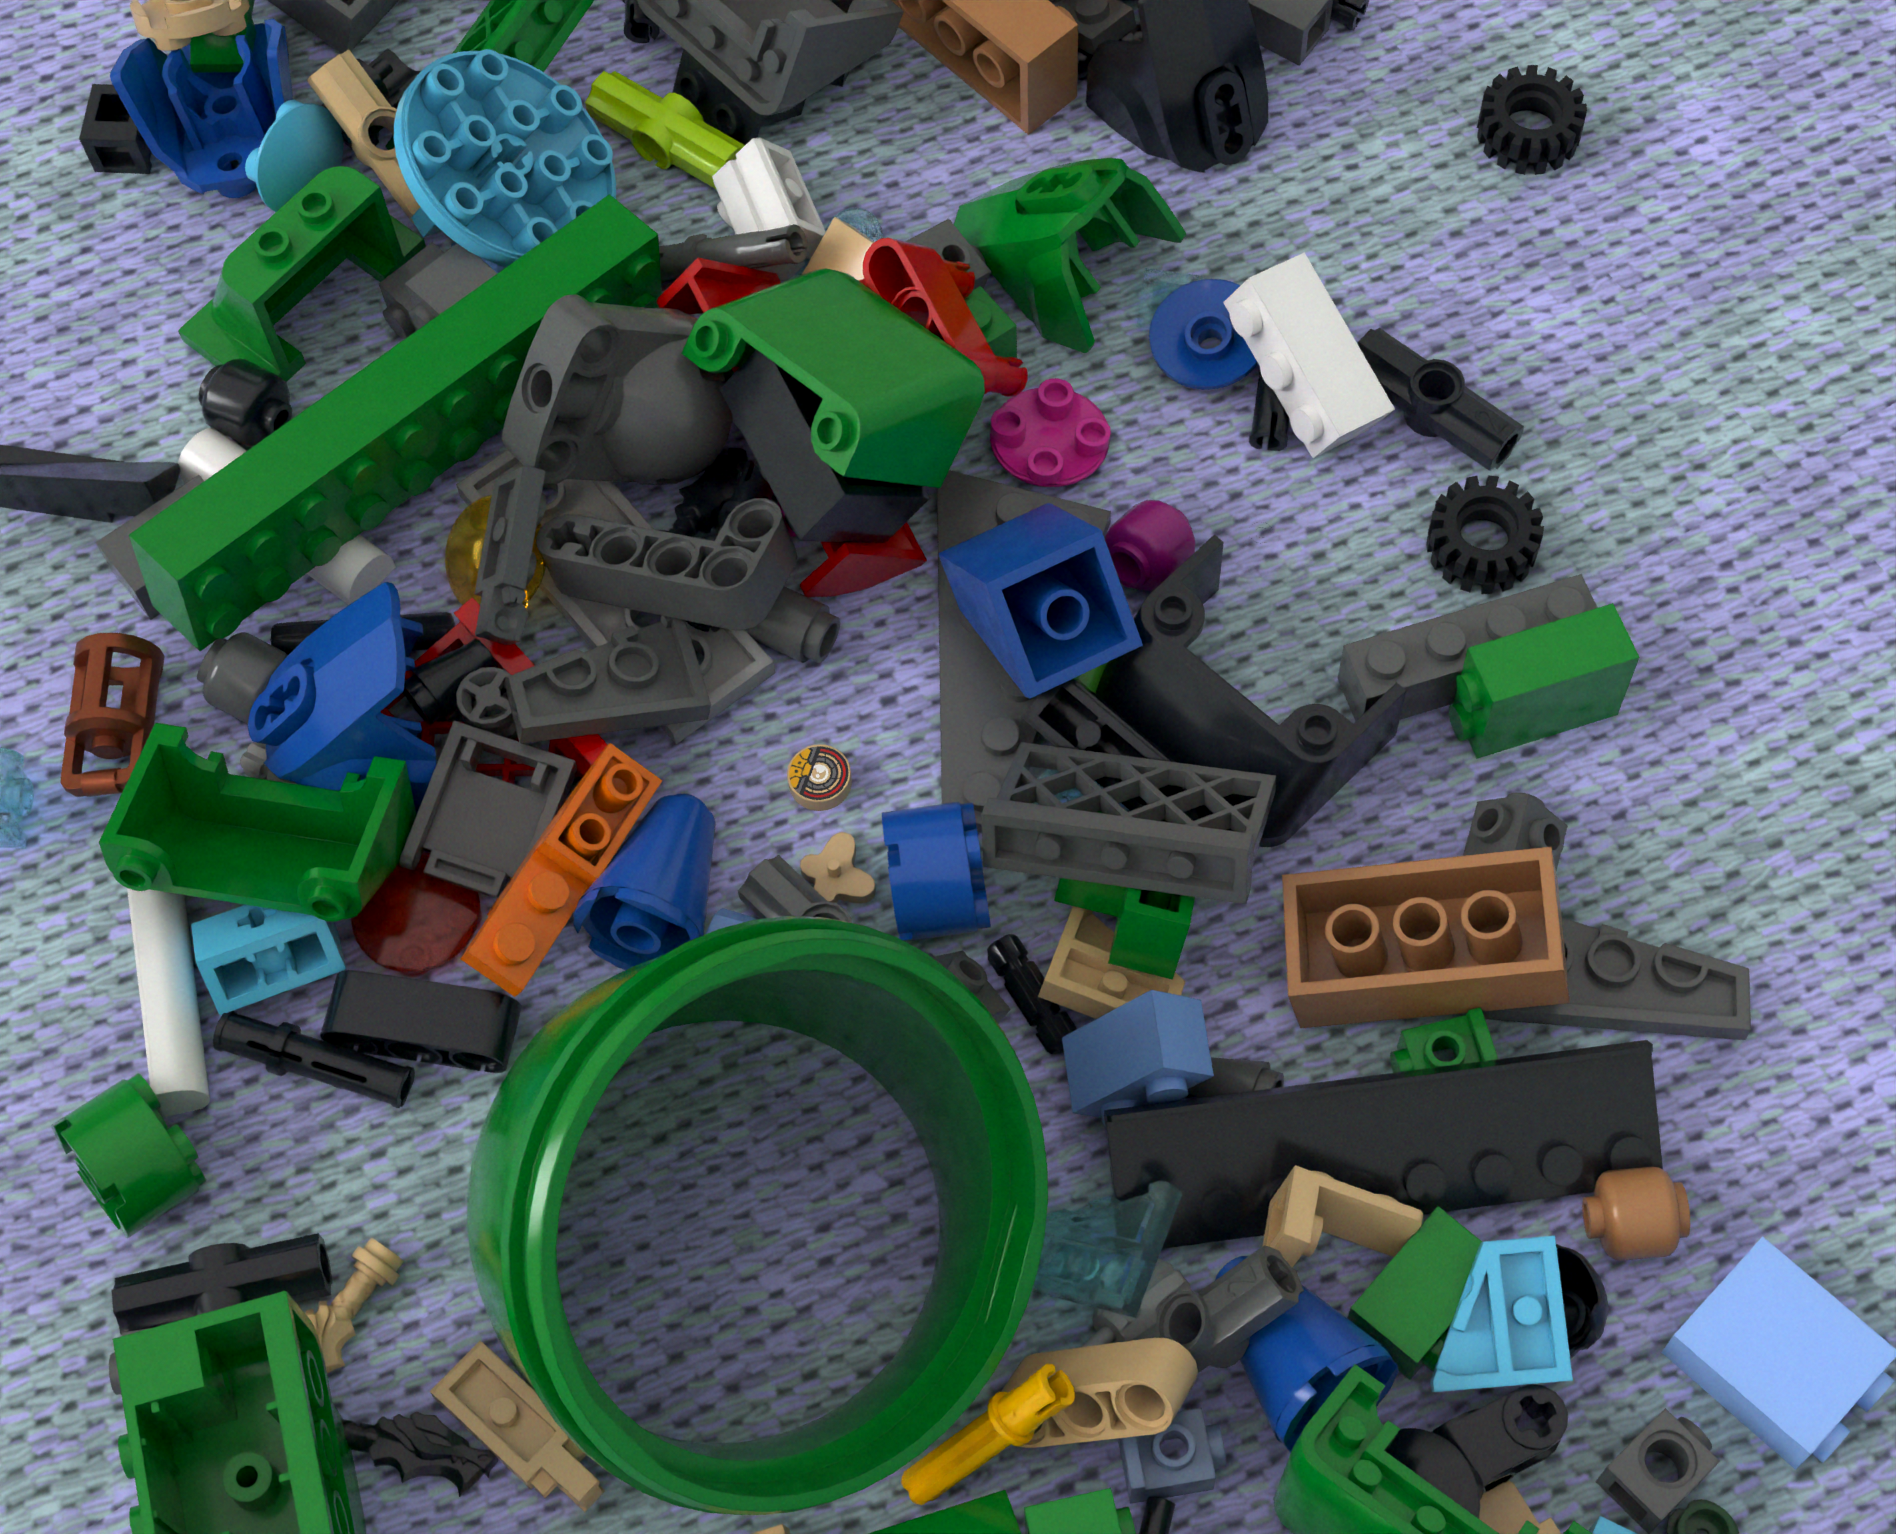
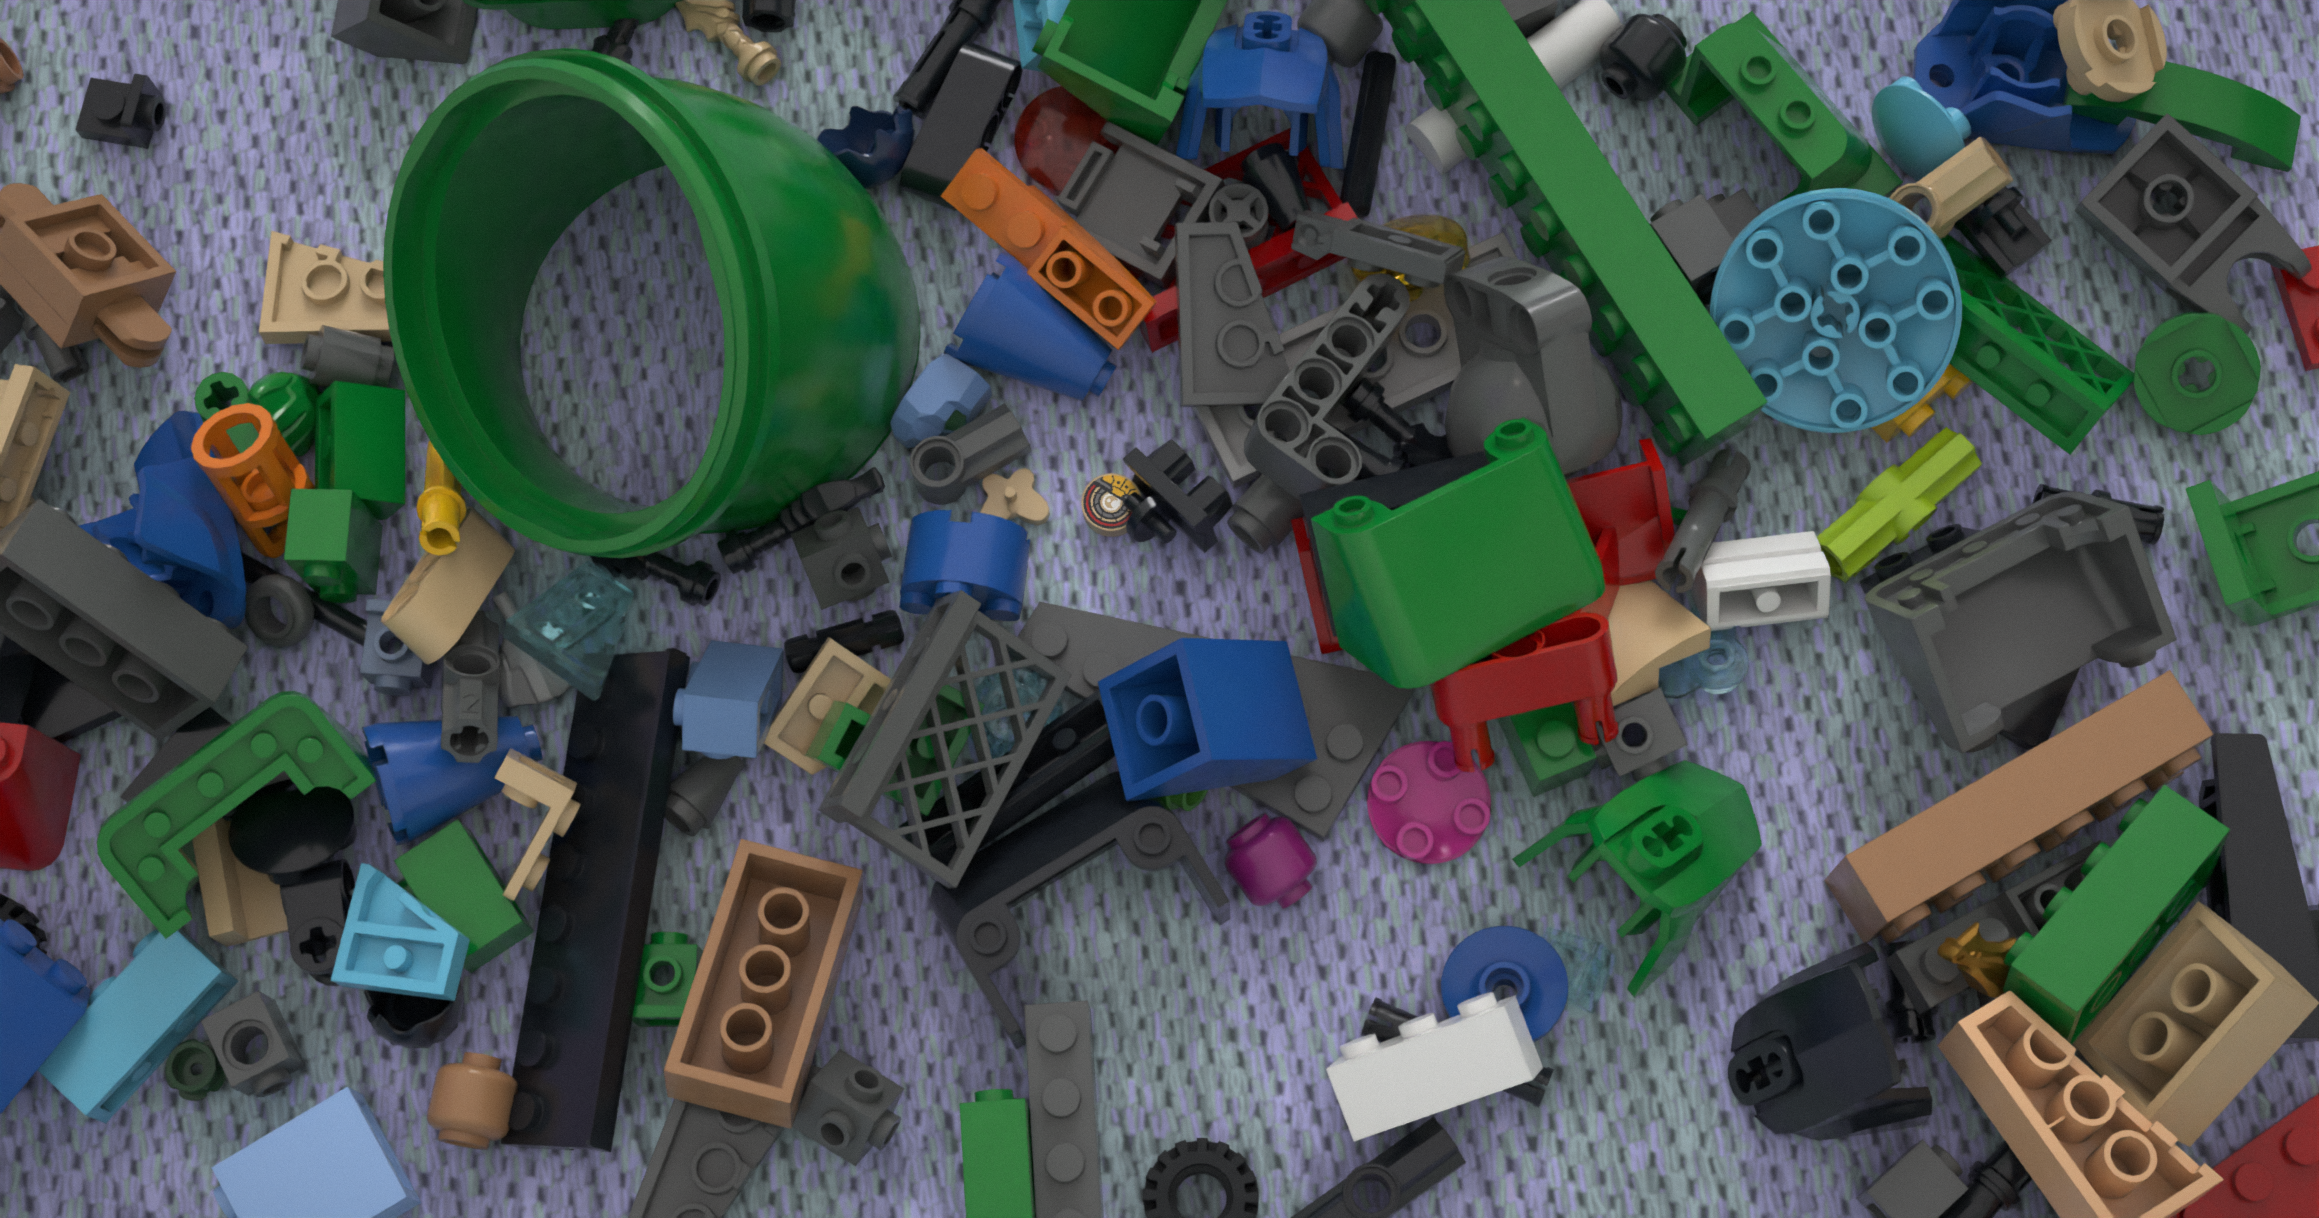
camera: 105 degrees right, 10 degrees up
(456, 1100) = (872, 144): none -> dark blue hair
(813, 714) = (1158, 481): none -> black hips

